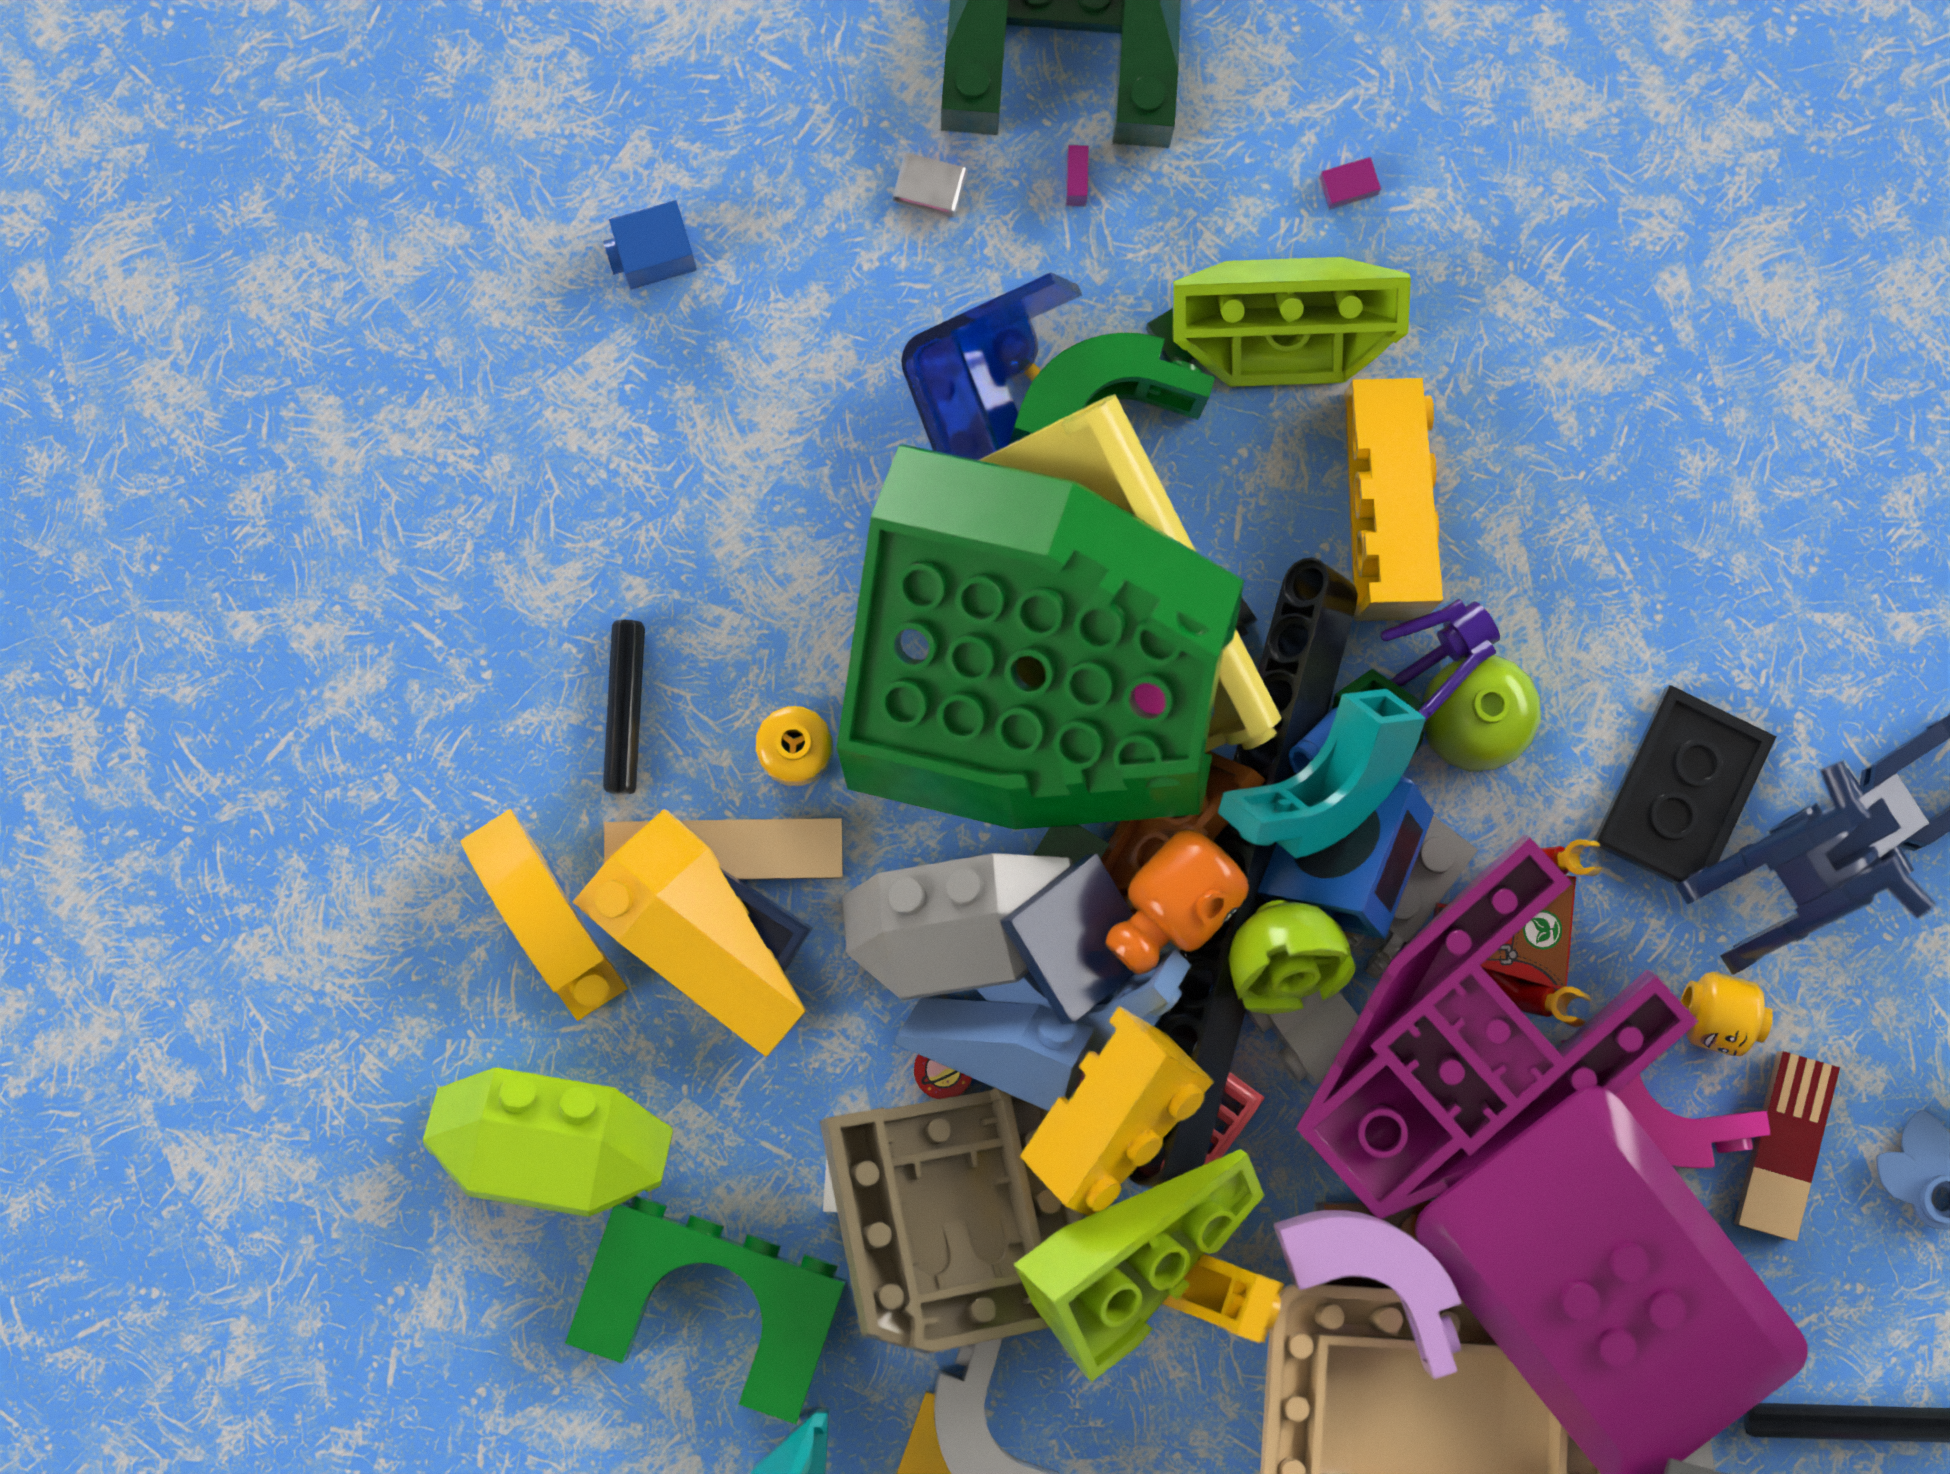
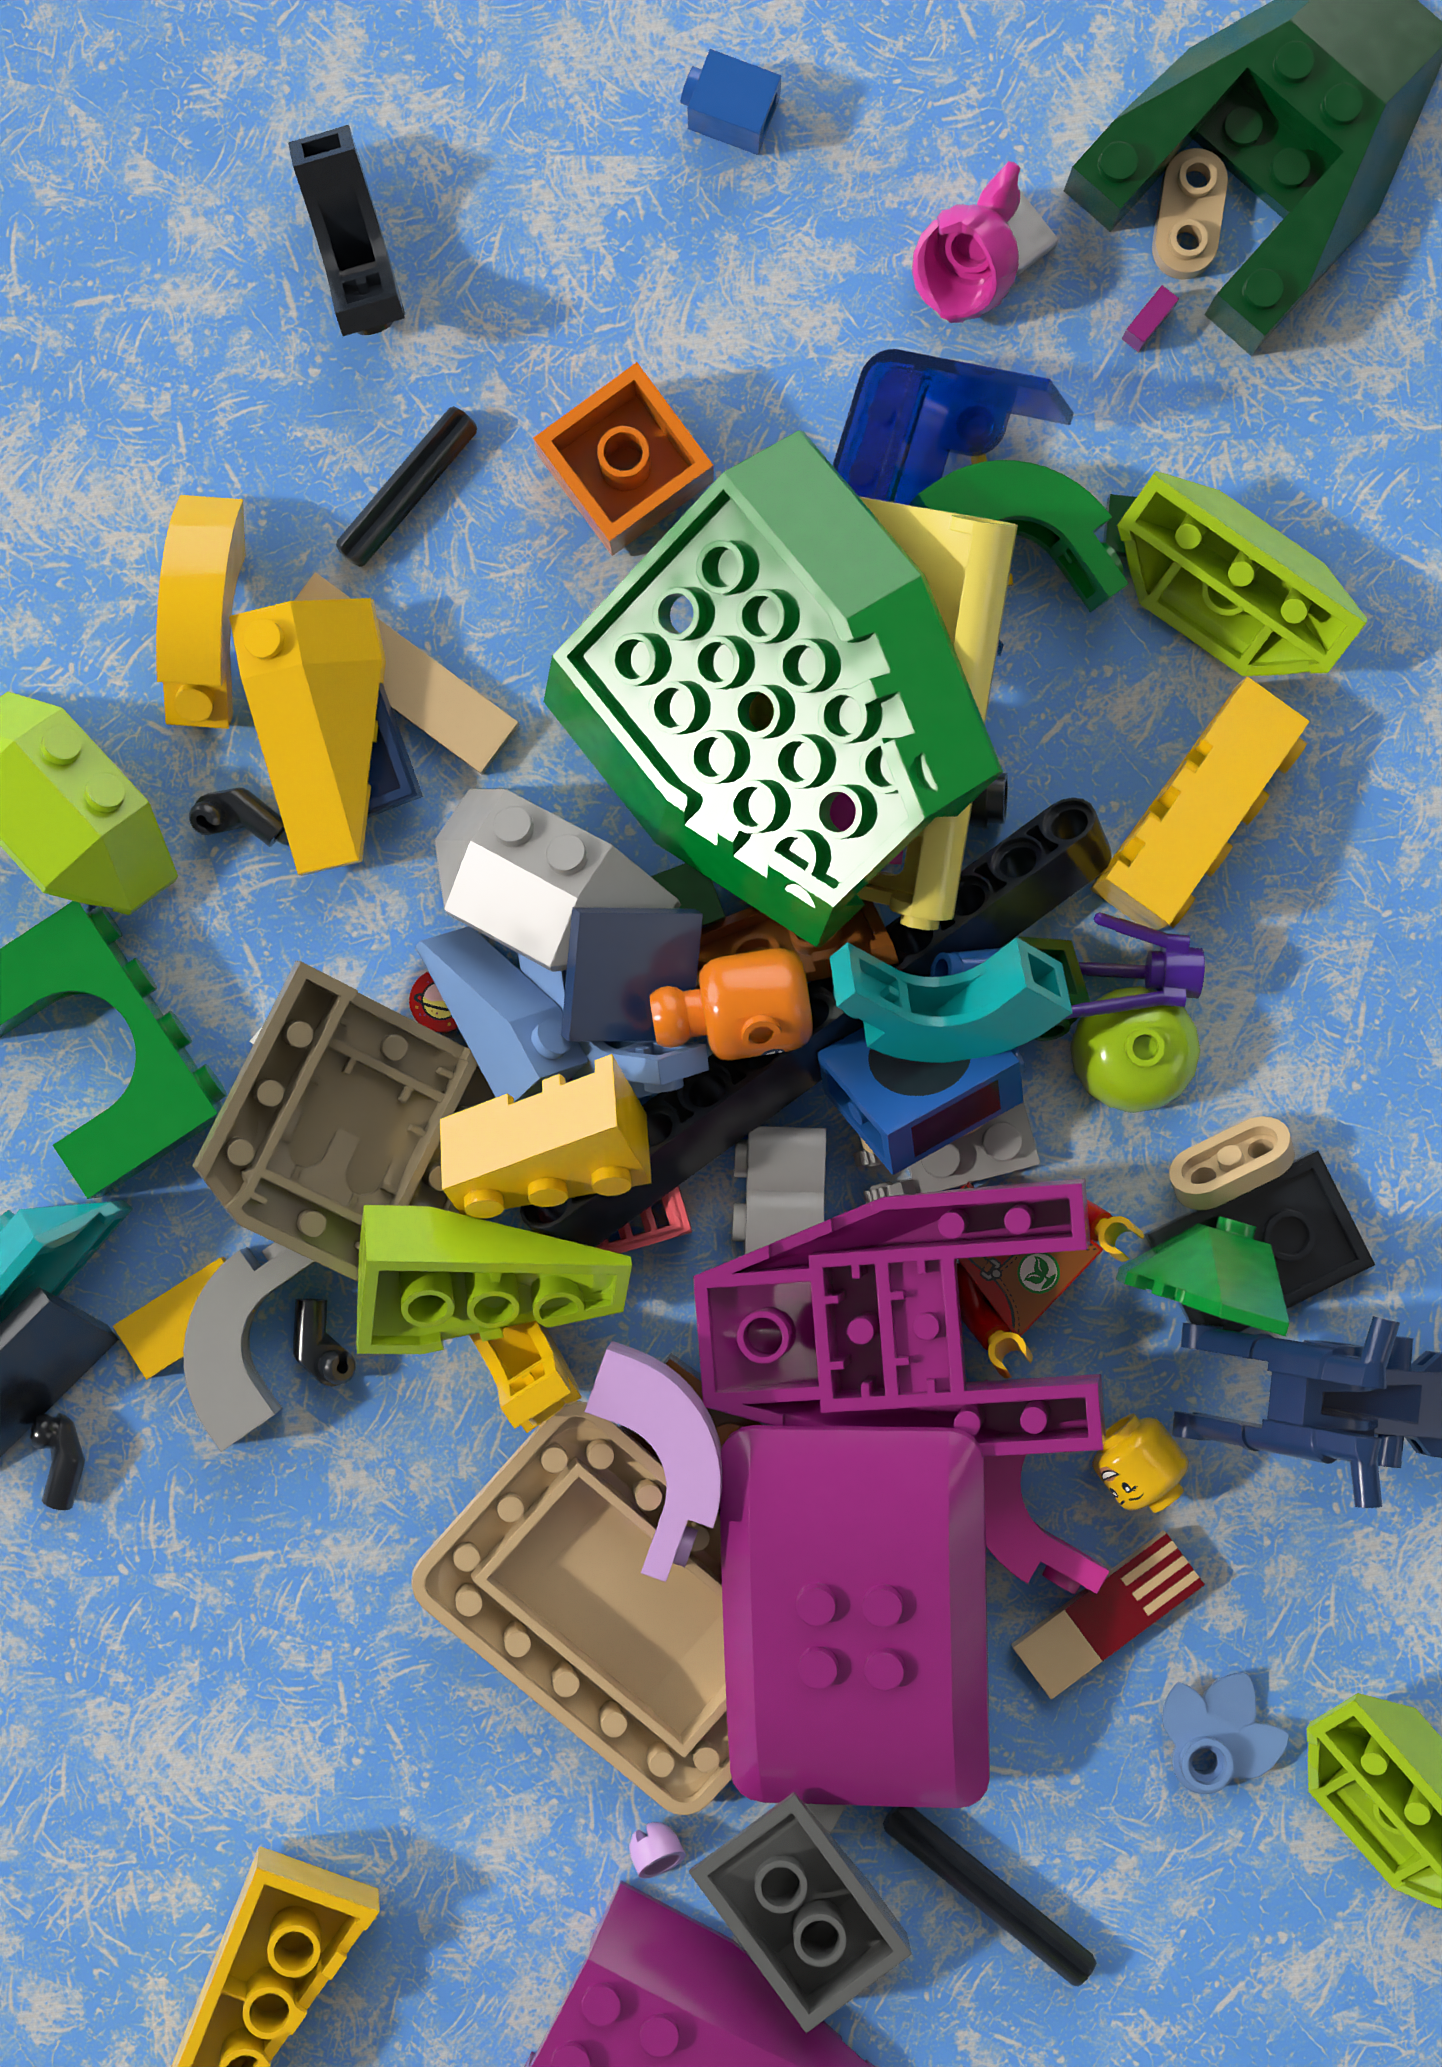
camera: 45 degrees right, 5 degrees up
(441, 552) = (347, 232): none -> black arch
(679, 1045) = (234, 810): none -> black arm
(774, 564) = (624, 459): none -> orange brick
(793, 767) = (529, 650): yellow head -> none
(912, 226) = (970, 253): none -> dark pink hair
(1045, 76) = (1189, 211): none -> tan plate
(1051, 1405) = (316, 1349): none -> black arm
(1288, 955) = (797, 1125): lime cylinder -> none
(1350, 183) = (1385, 505): magenta piece -> none
(1614, 743) = (1232, 1163): none -> tan plate
(1674, 829) = (1215, 1273): none -> green wedge

